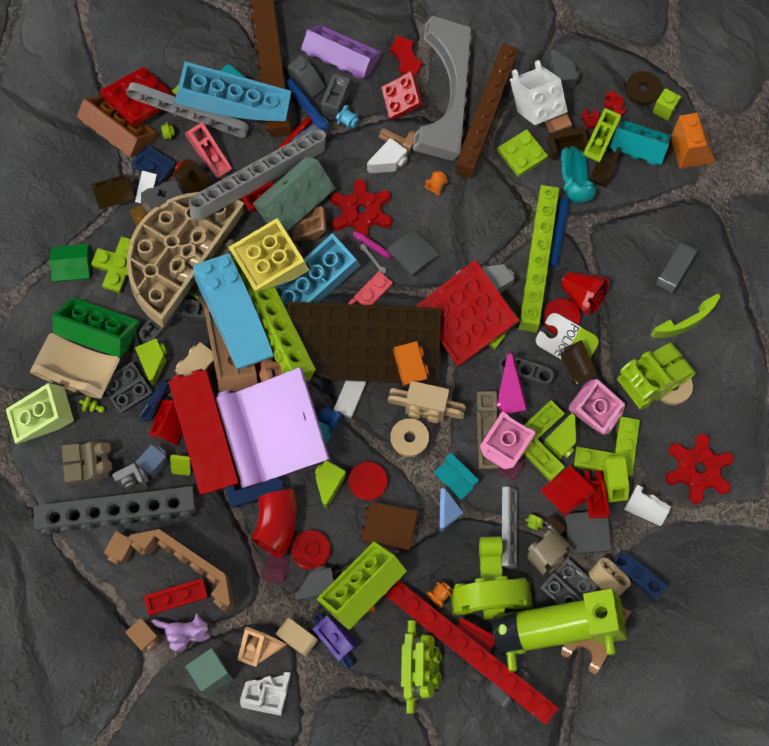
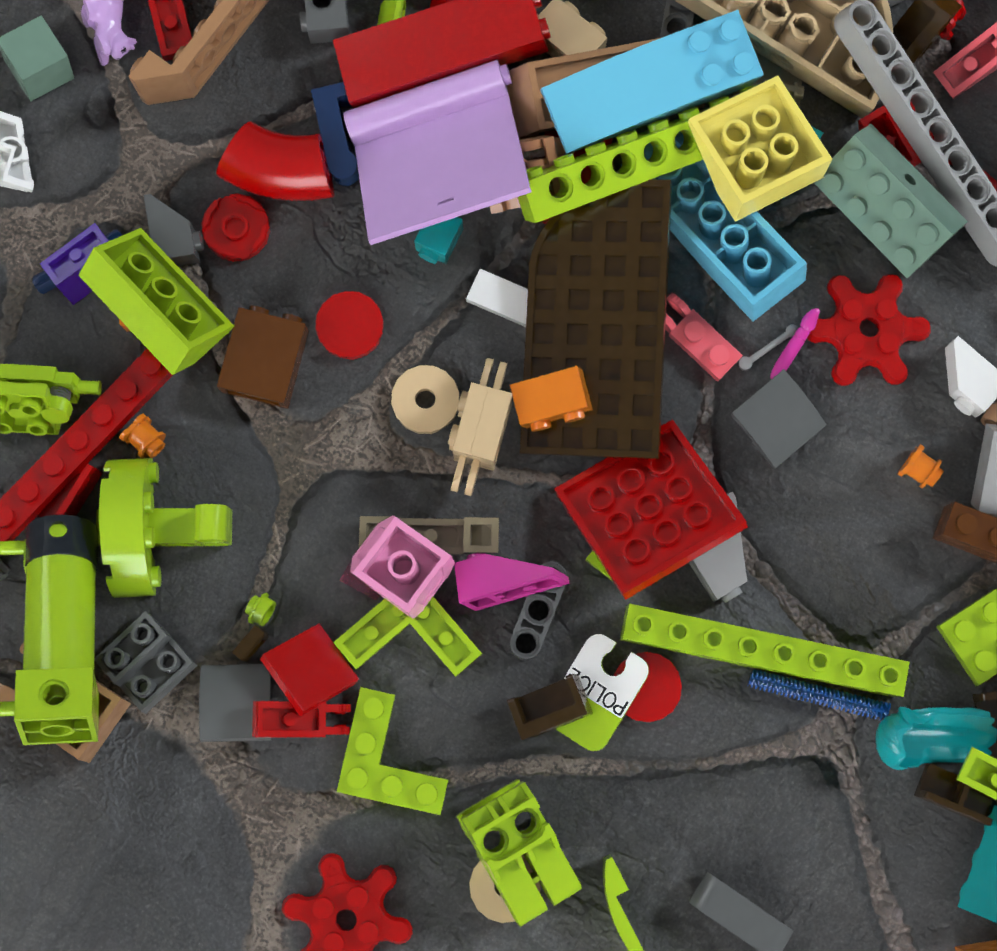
camera: 90 degrees right, 10 degrees up
(257, 647) = (80, 139): light nougat slope -> none
(275, 569) = (202, 170): clear pink slope -> none
(296, 637) = (88, 199): tan beam -> none
(310, 226) = (834, 234): medium nougat slope -> none
(329, 481) = (347, 256): lime slope -> none
(330, 417) = (465, 261): blue brick -> none
(448, 510) = (290, 459): light blue slope -> none
(456, 476) = (349, 477): teal panel -> none
(509, 528) = (251, 563): light grey tile -> none
(549, 552) = (198, 628): dark tan brick -> none
(563, 438) = (408, 670): lime slope -> none
(585, 290) = (694, 734): red cone -> none
(597, 406) = (465, 737): bright pink slope -> none
(609, 576) = (156, 726): tan beam -> none
(616, 478) = (324, 757): lime slope -> none
(640, 576) = (151, 786): dark blue leg -> none
(647, 506) = (273, 813): white slope -> none

